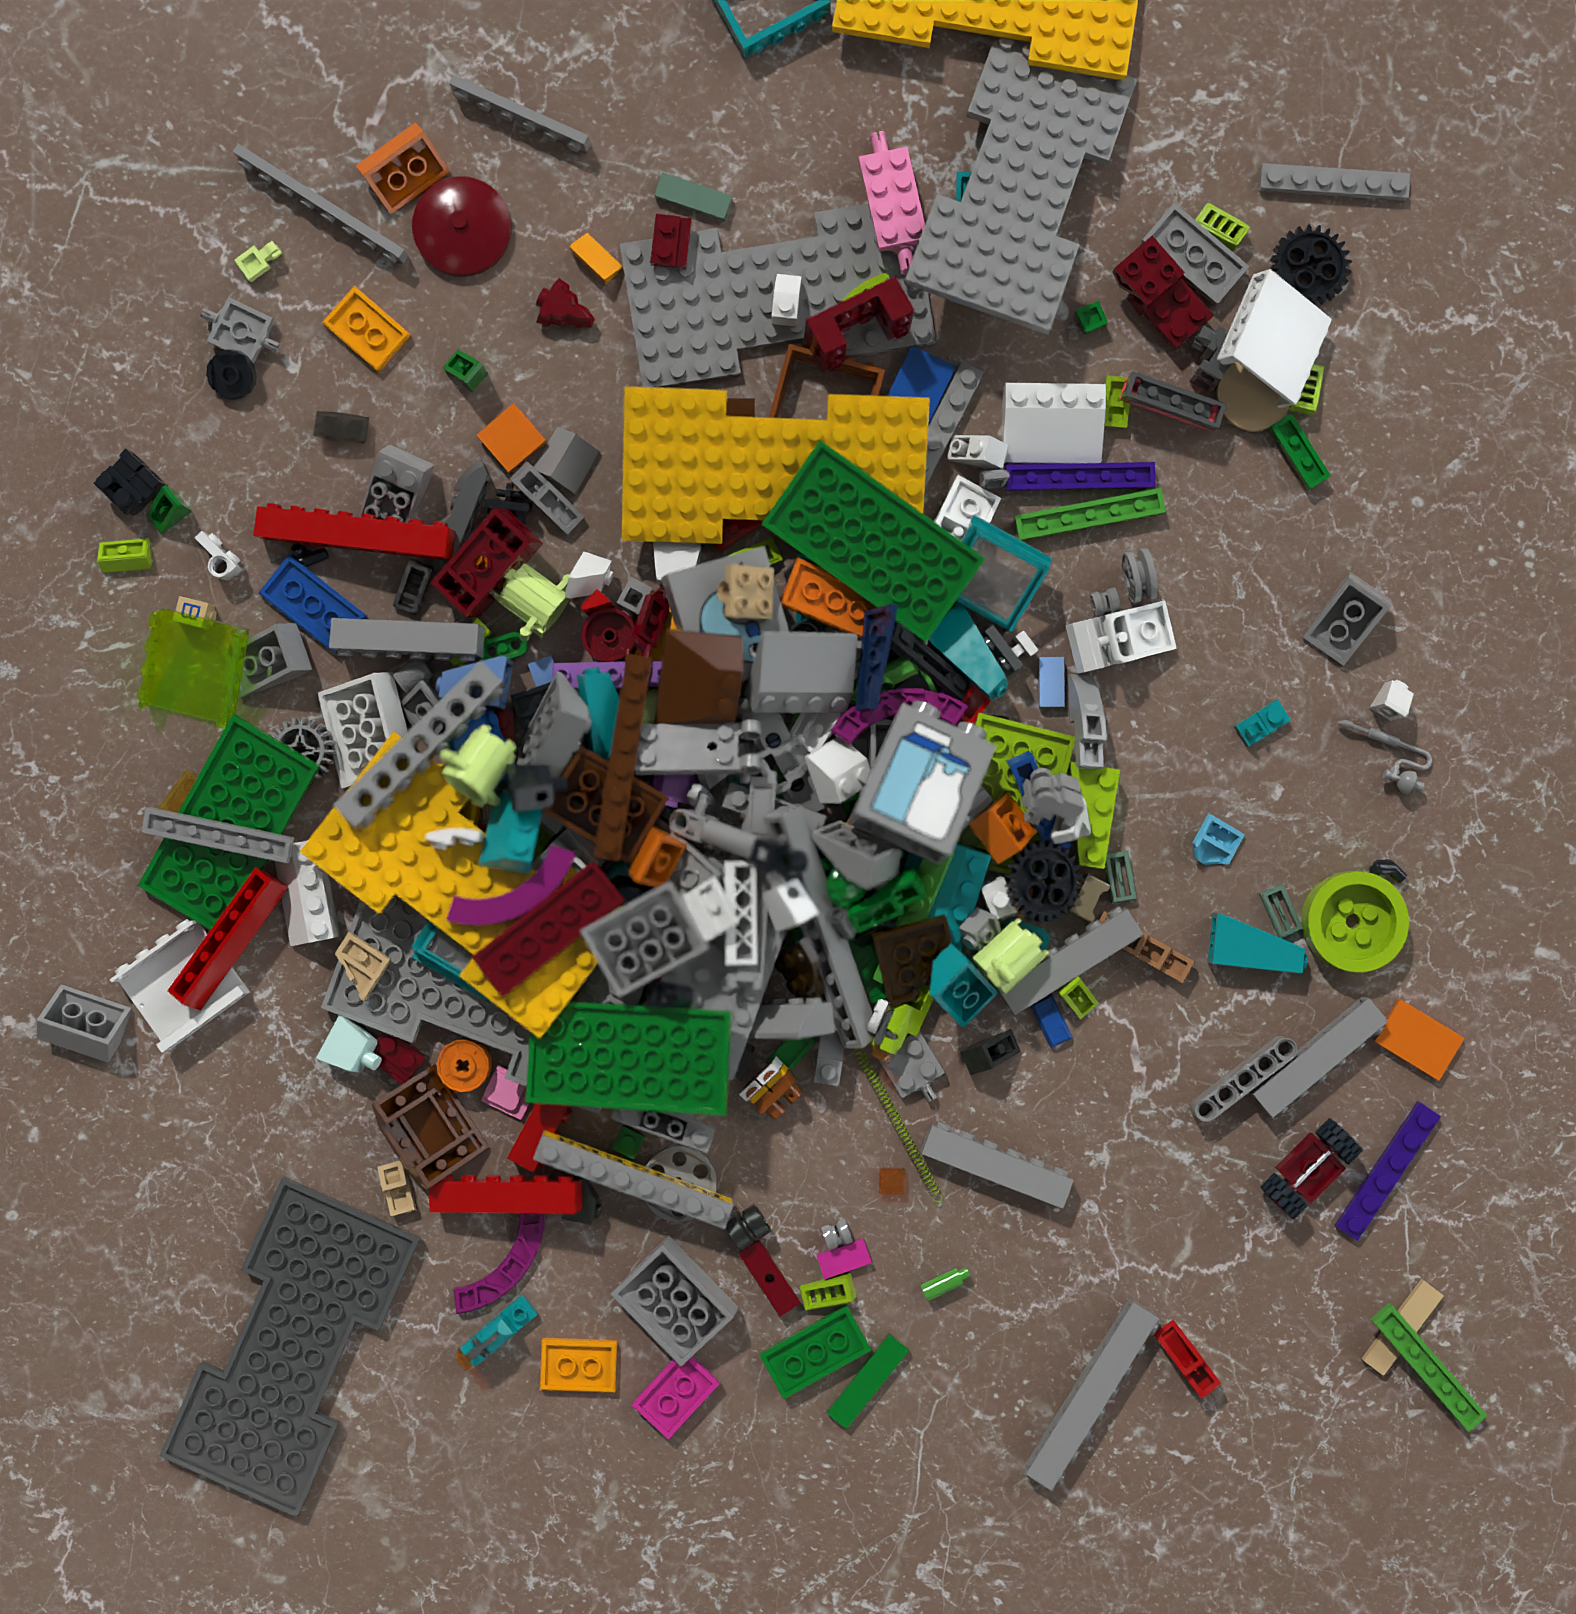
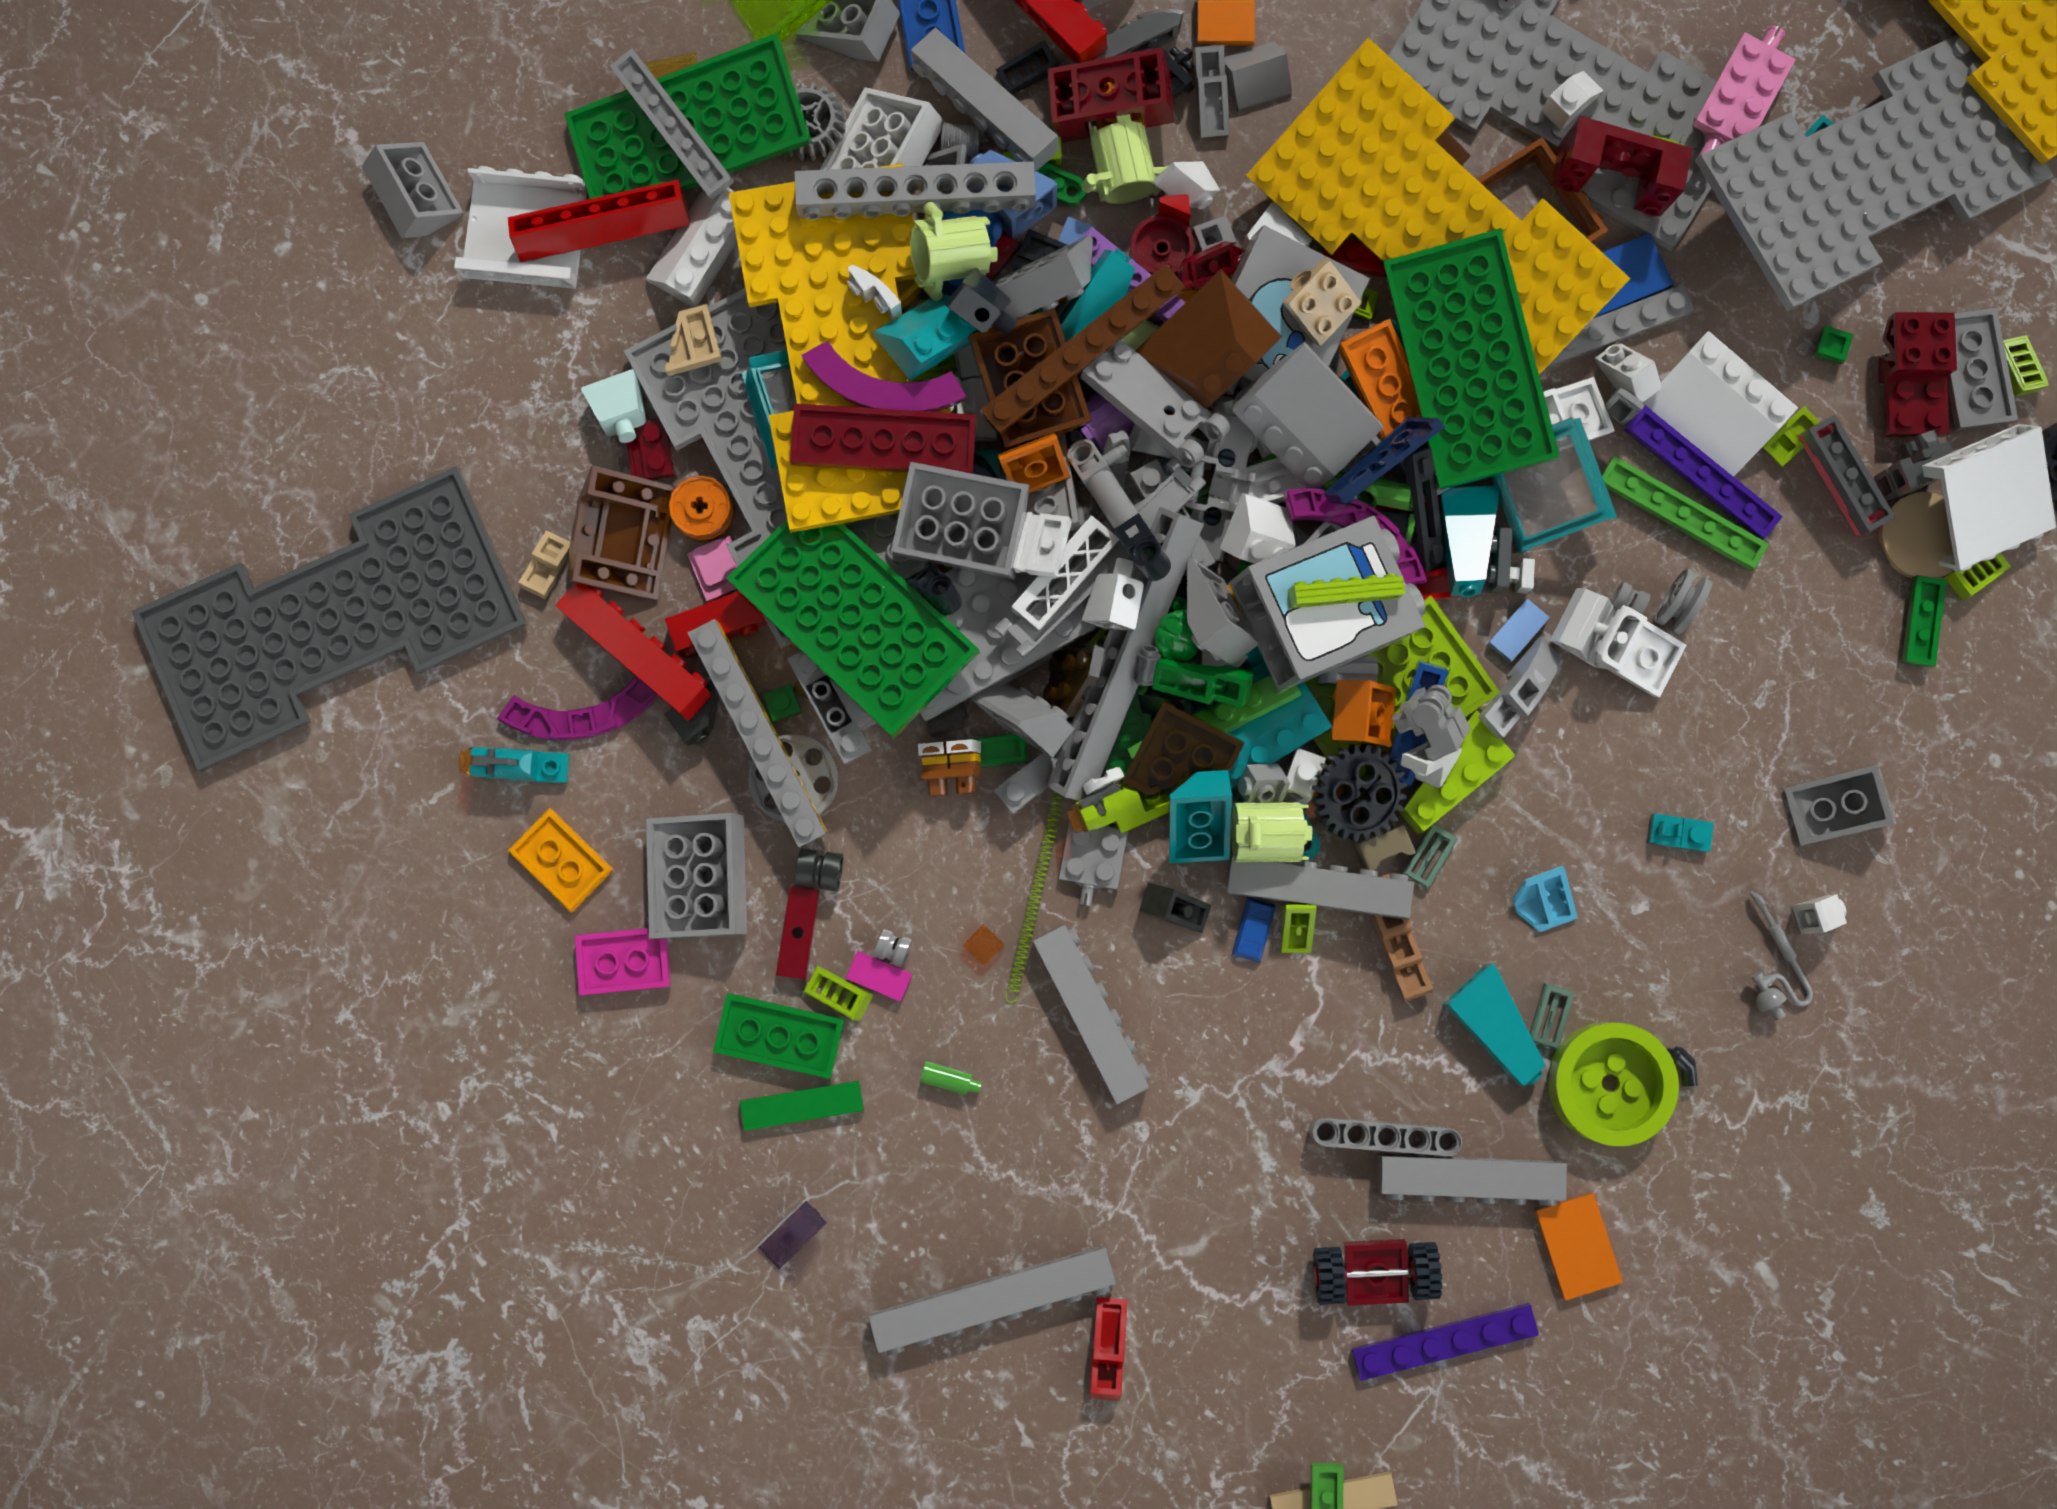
camera: 40 degrees right, 5 degrees down
(927, 774) = (1347, 591): none -> lime piece
(934, 1464) = (792, 1234): none -> clear purple slope

